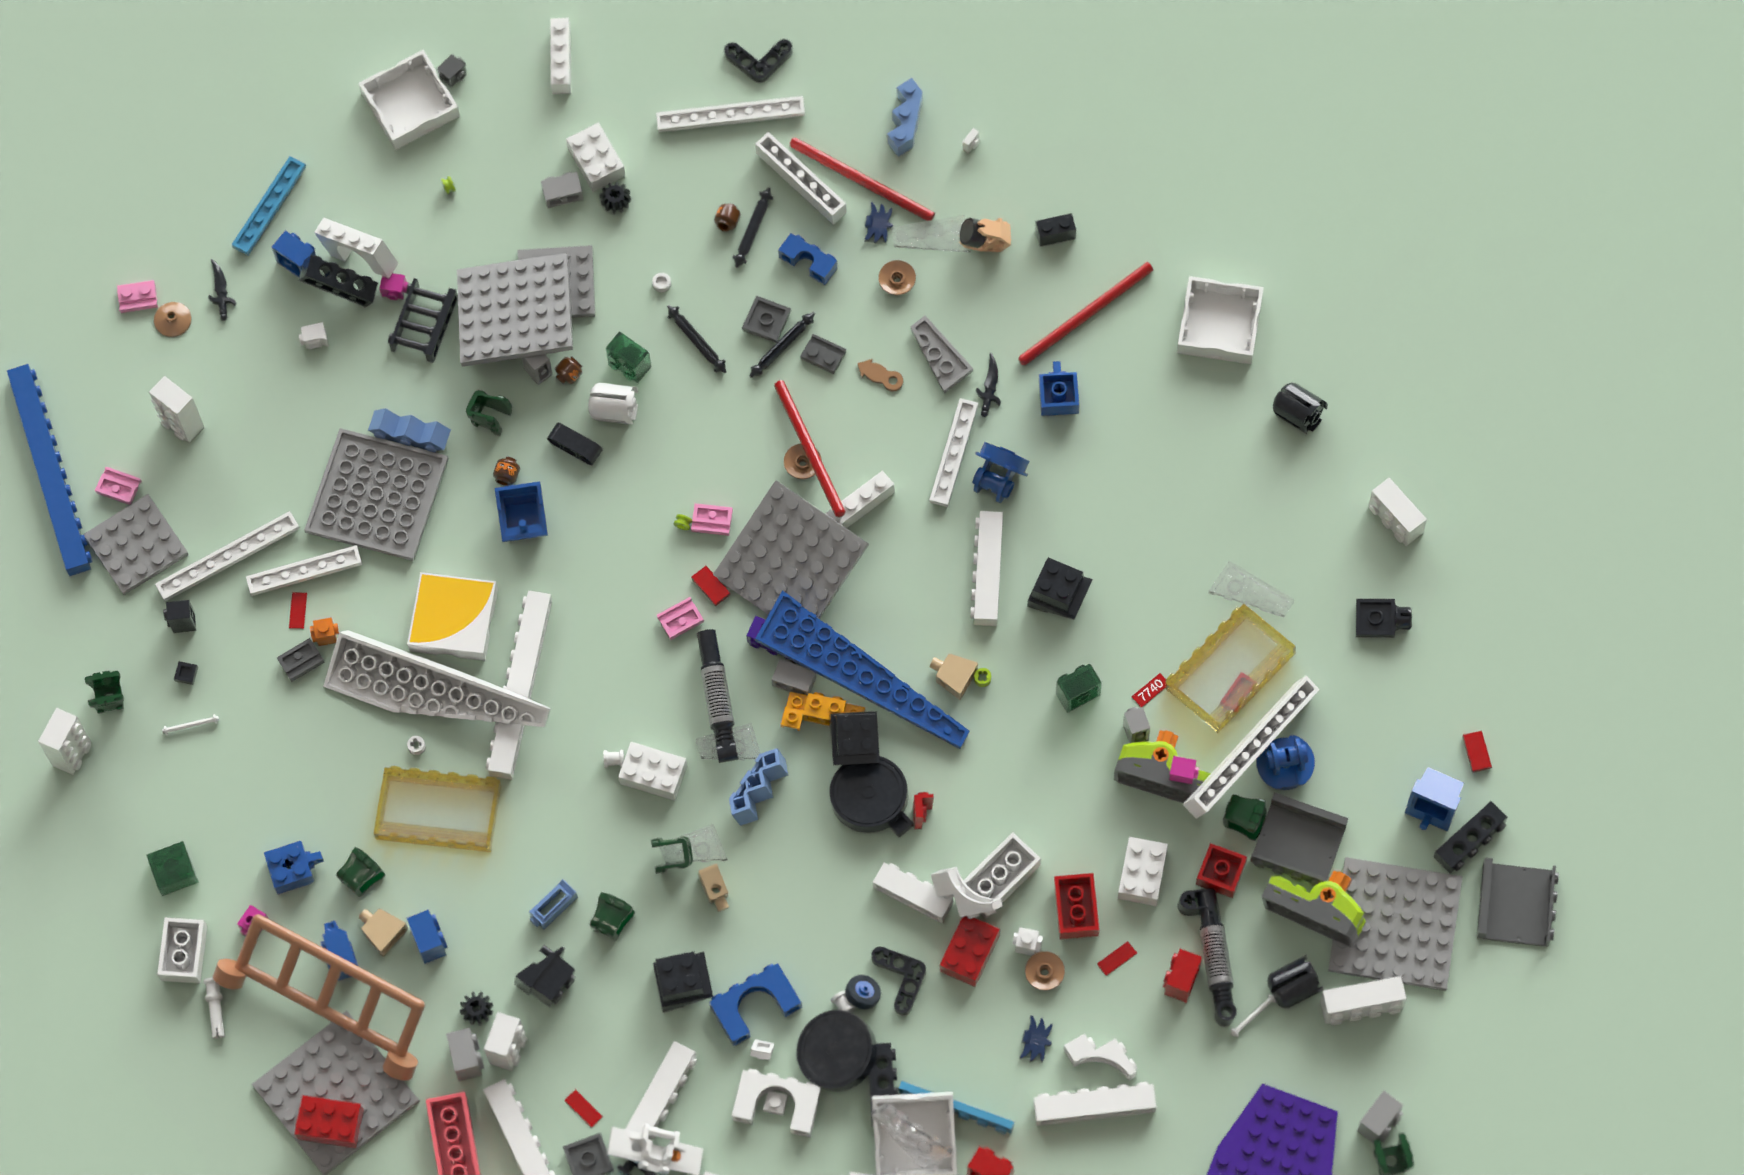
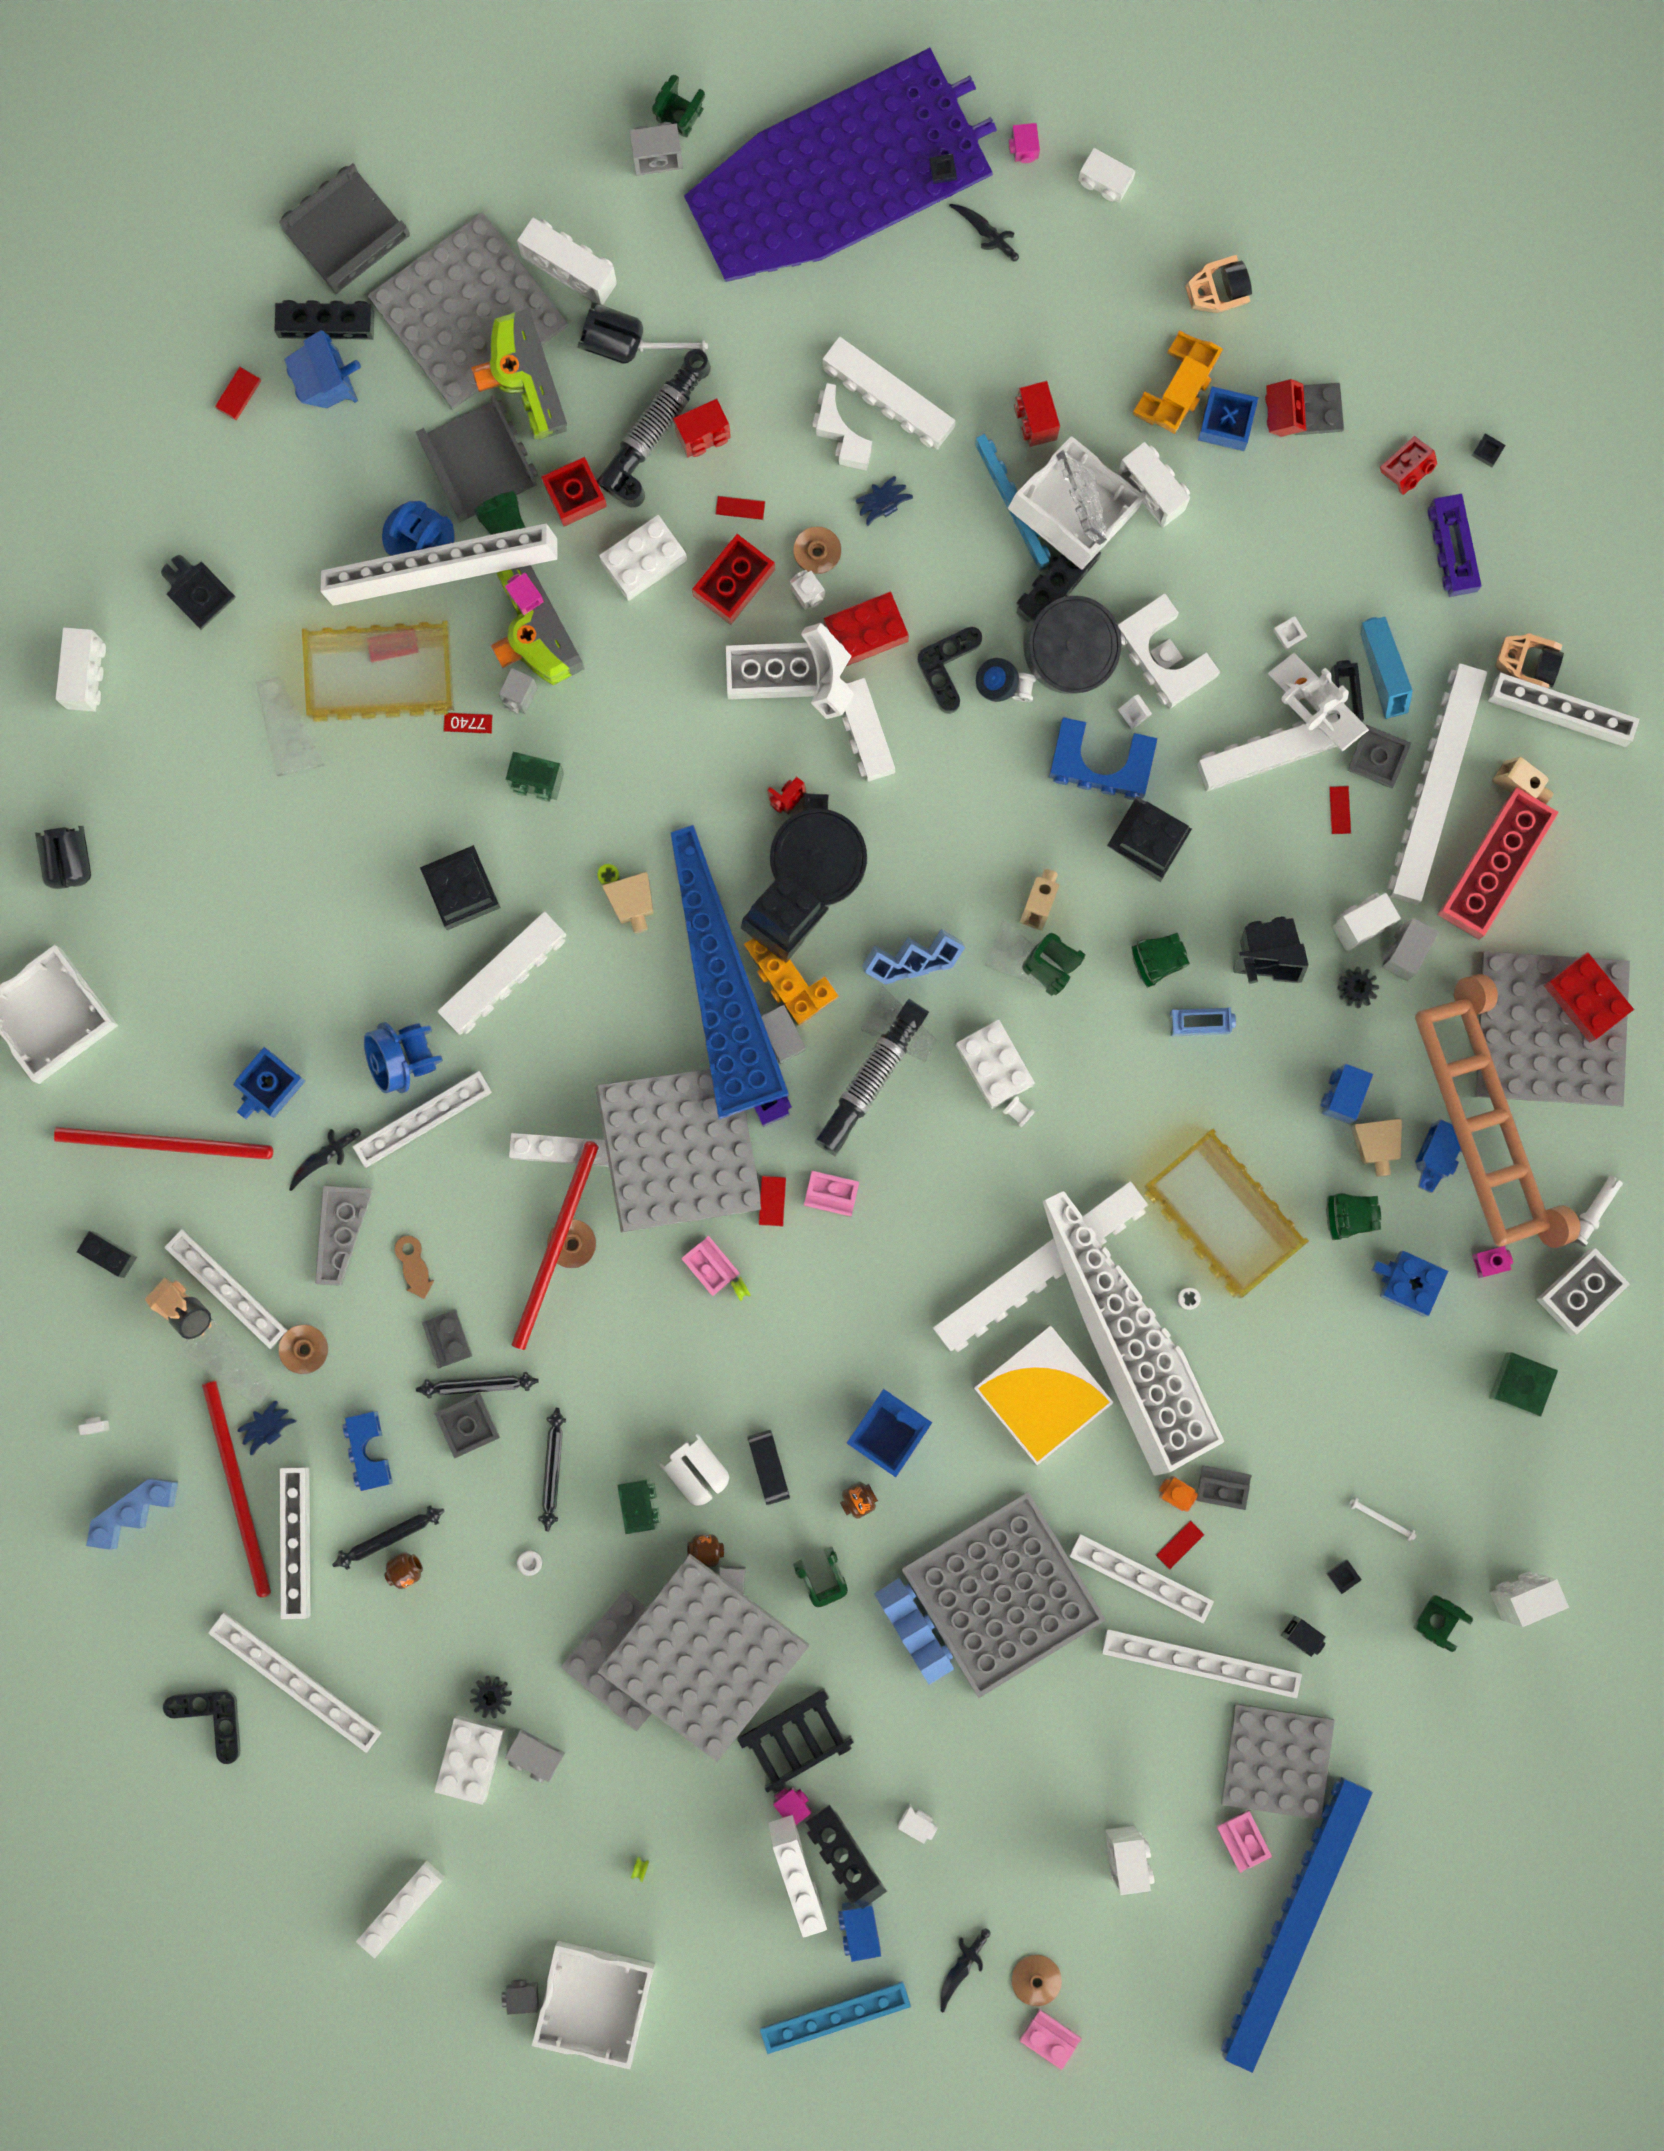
camera: 140 degrees left, 15 degrees up
(971, 271) = (226, 1289): none -> white plate

